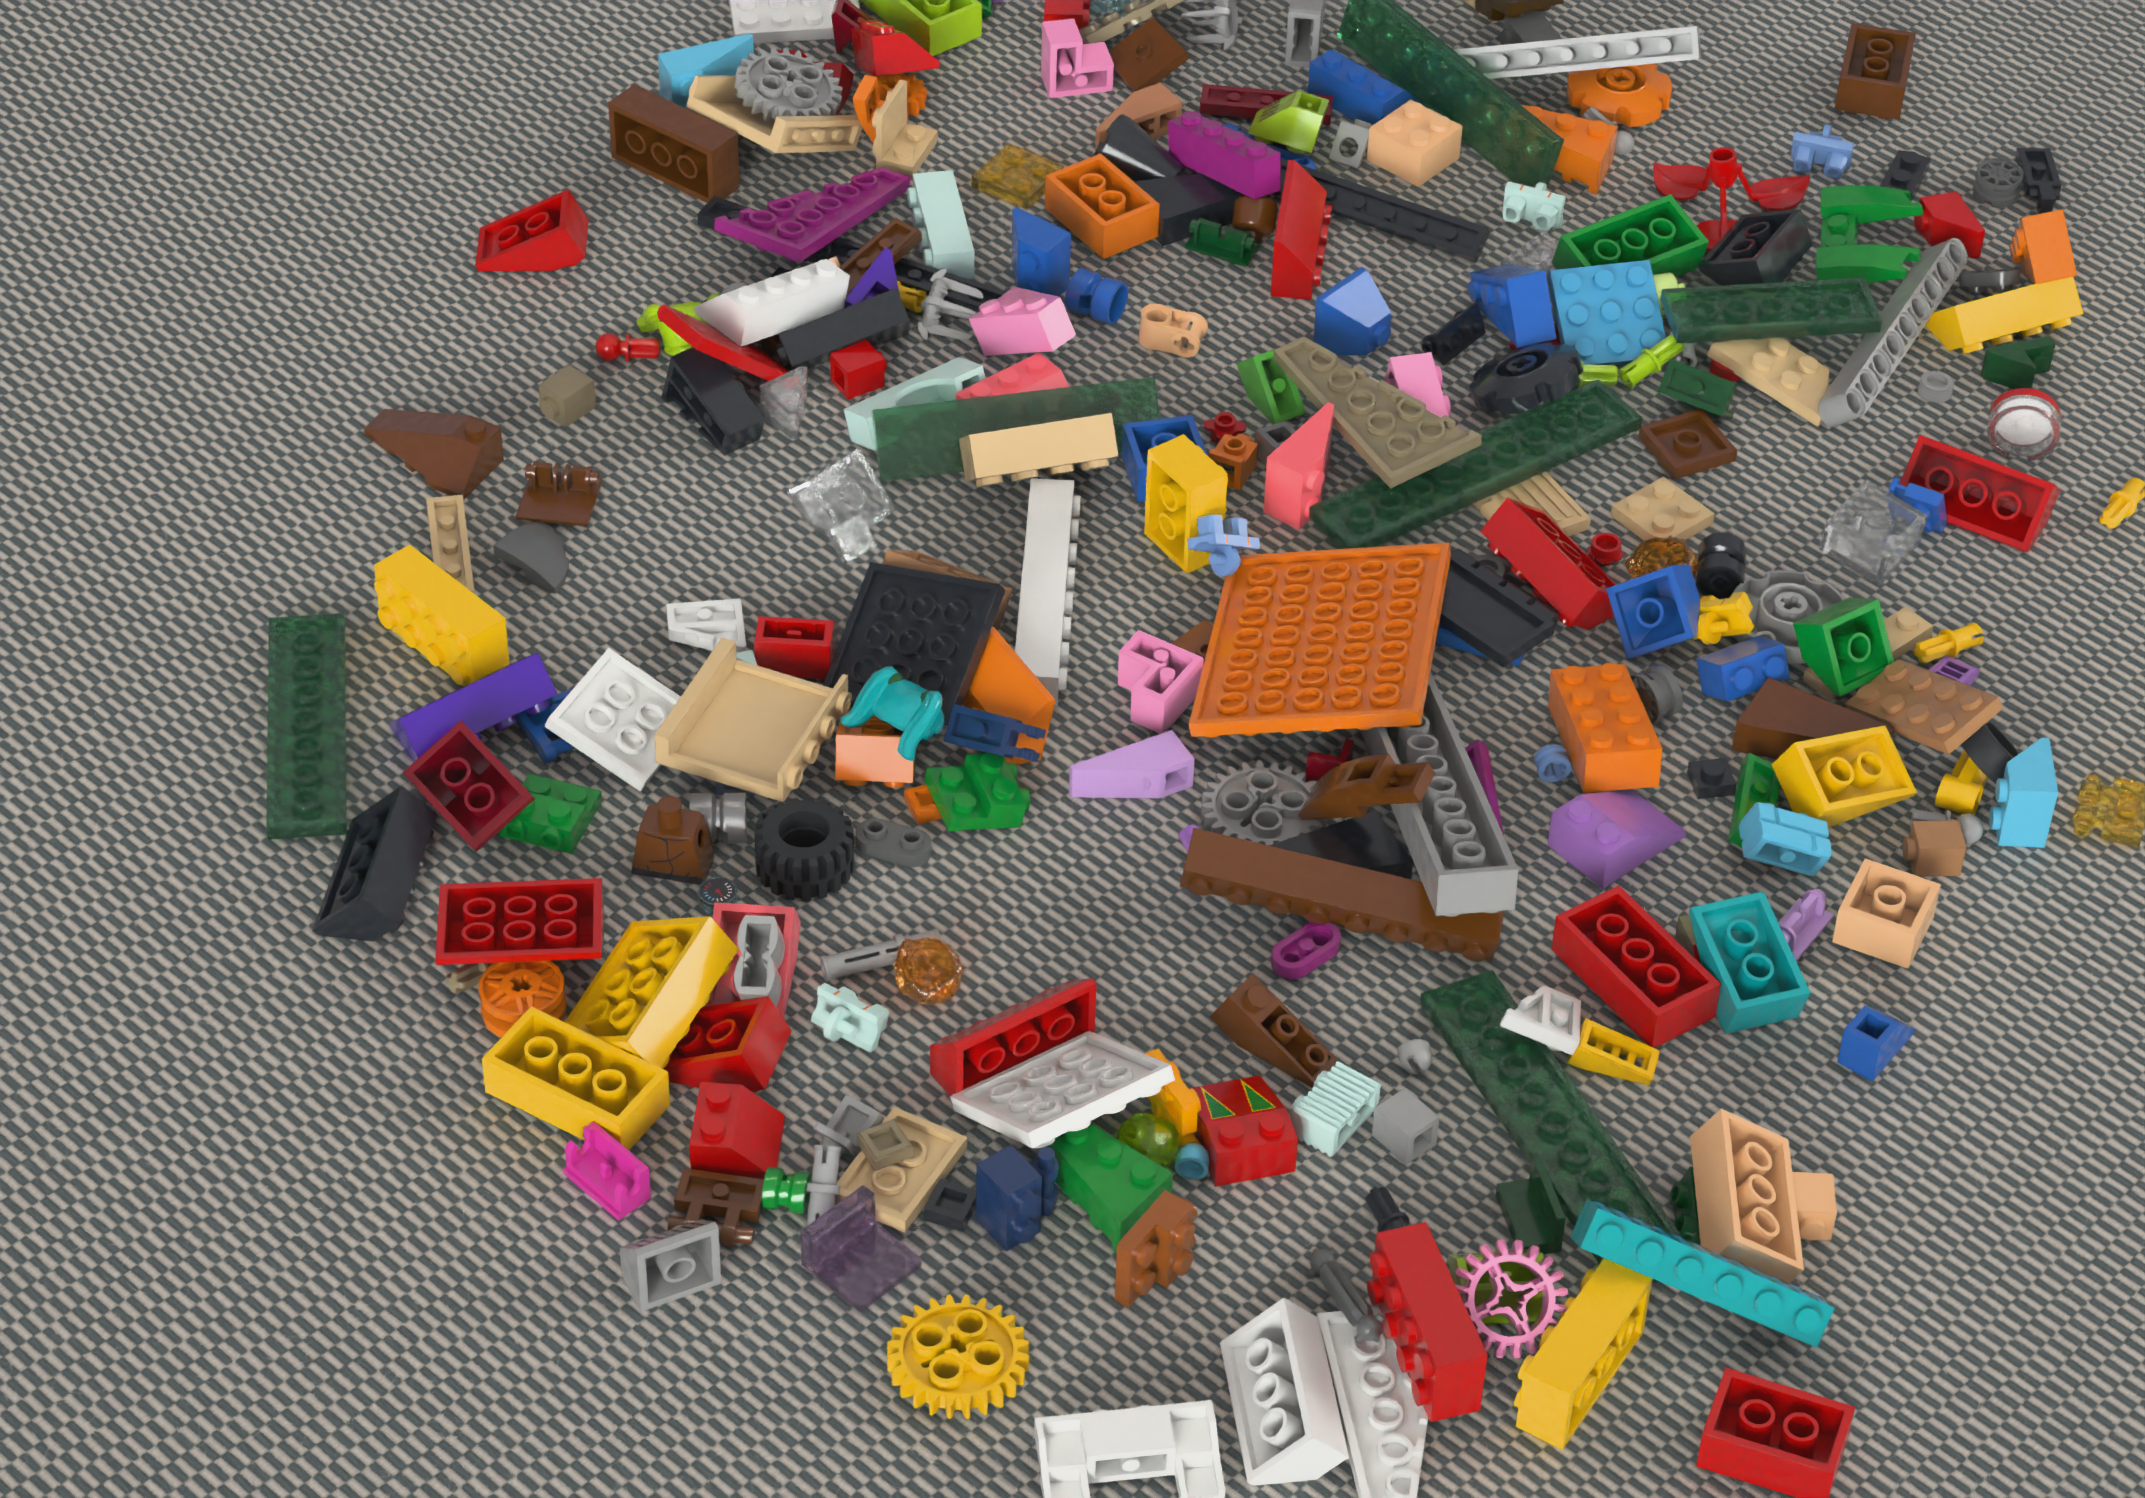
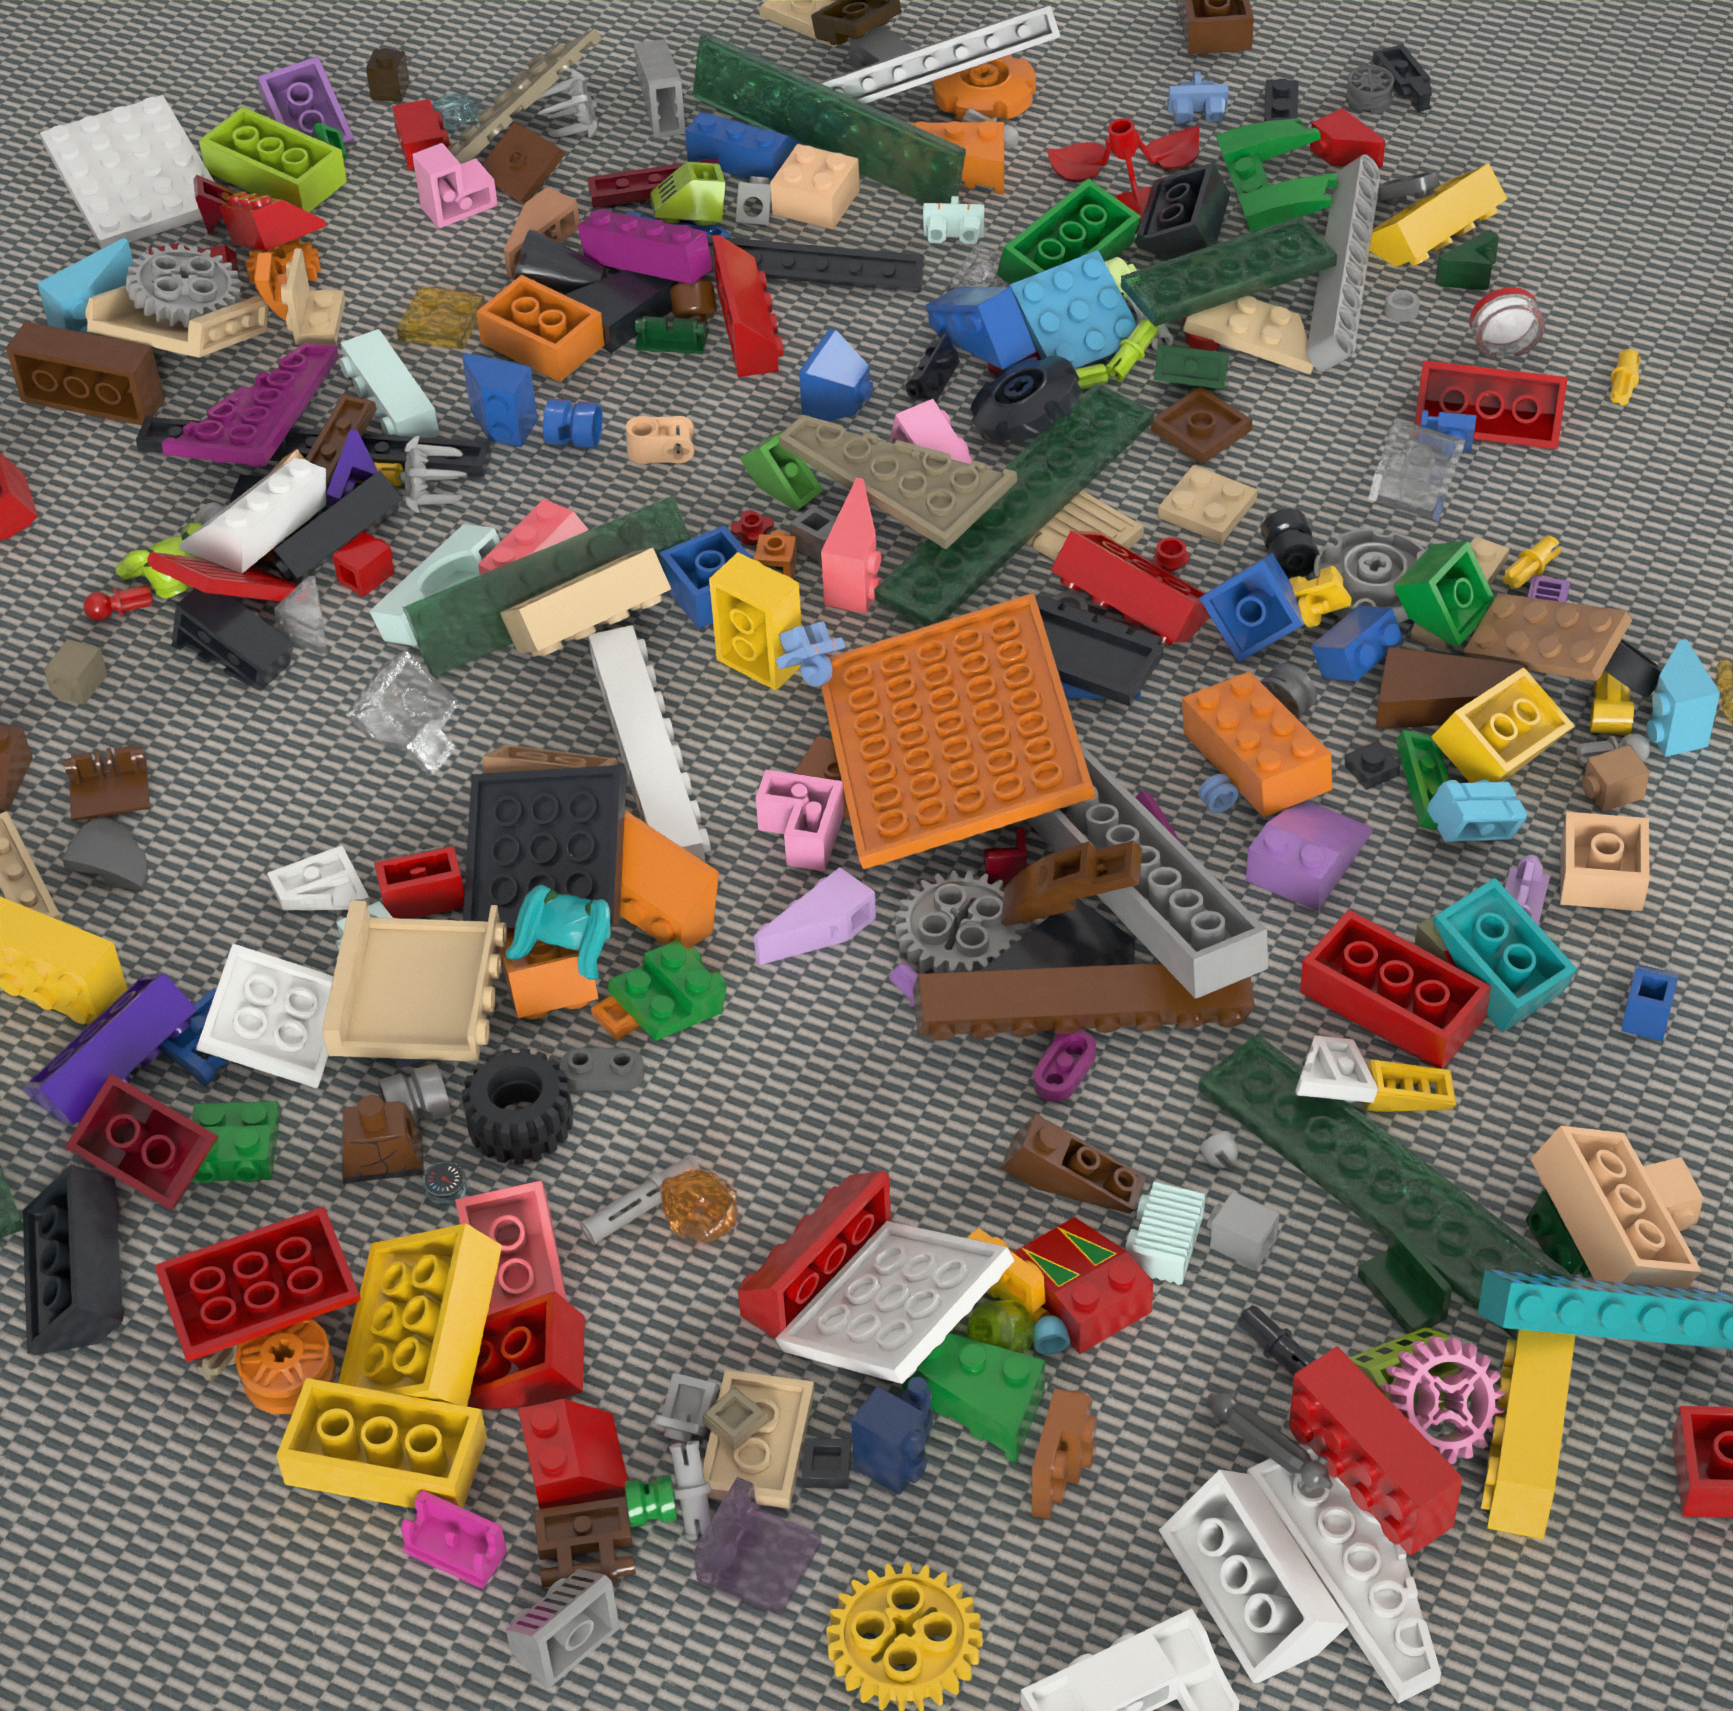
camera: 15 degrees left, 5 degrees up
(762, 954) = (528, 1243): light grey brick -> none
(849, 1018) = (636, 1282): light aqua hips -> none
(990, 733) = (663, 925): dark blue hinge -> none
(1022, 323) = (515, 472): bright pink wedge -> none
(1660, 553) = (1232, 552): clear orange hair -> none
(2043, 248) = (1453, 146): orange wedge -> none

